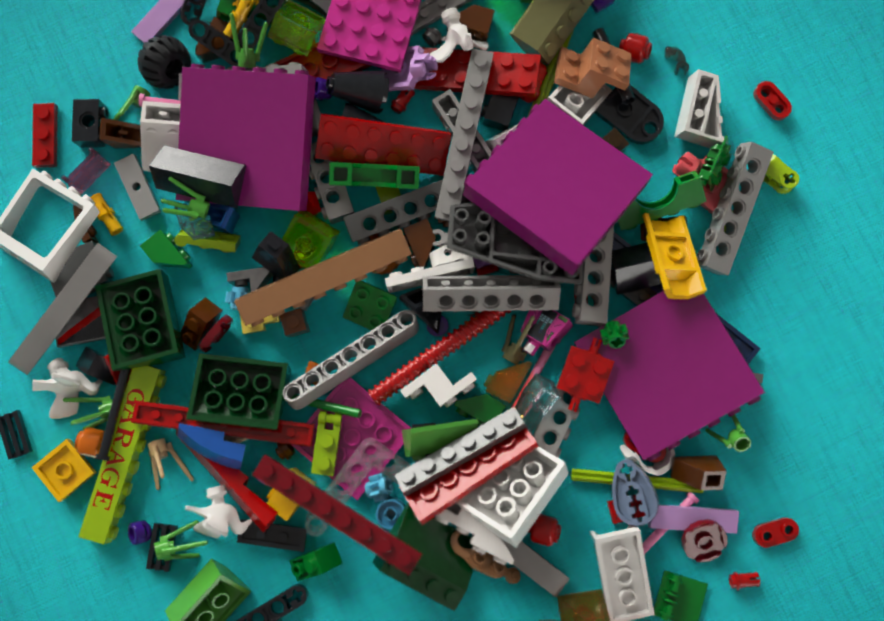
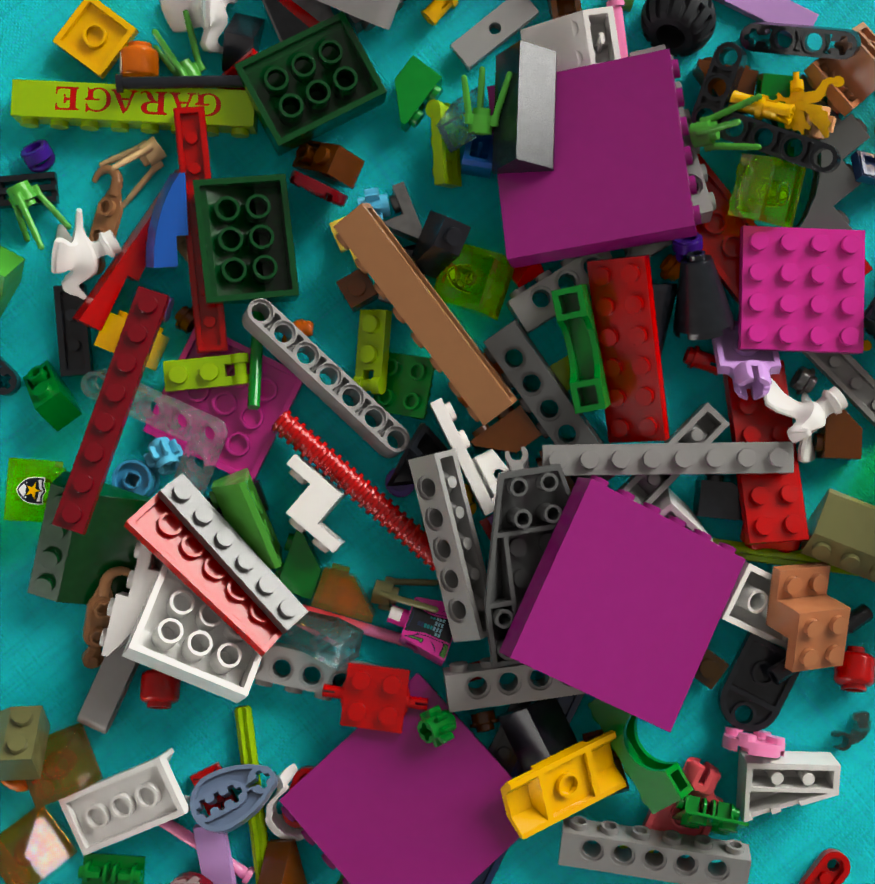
camera: 75 degrees right, 5 degrees up
(190, 487) = (109, 208): none -> medium nougat piece
(333, 105) = (670, 268): none -> orange plate
(339, 322) = (373, 350): none -> lime plate
(379, 590) = (29, 488): none -> clear neon green slope
(618, 305) = (483, 721): none -> reddish brown plate
(671, 122) = (759, 743): none -> bright pink plate

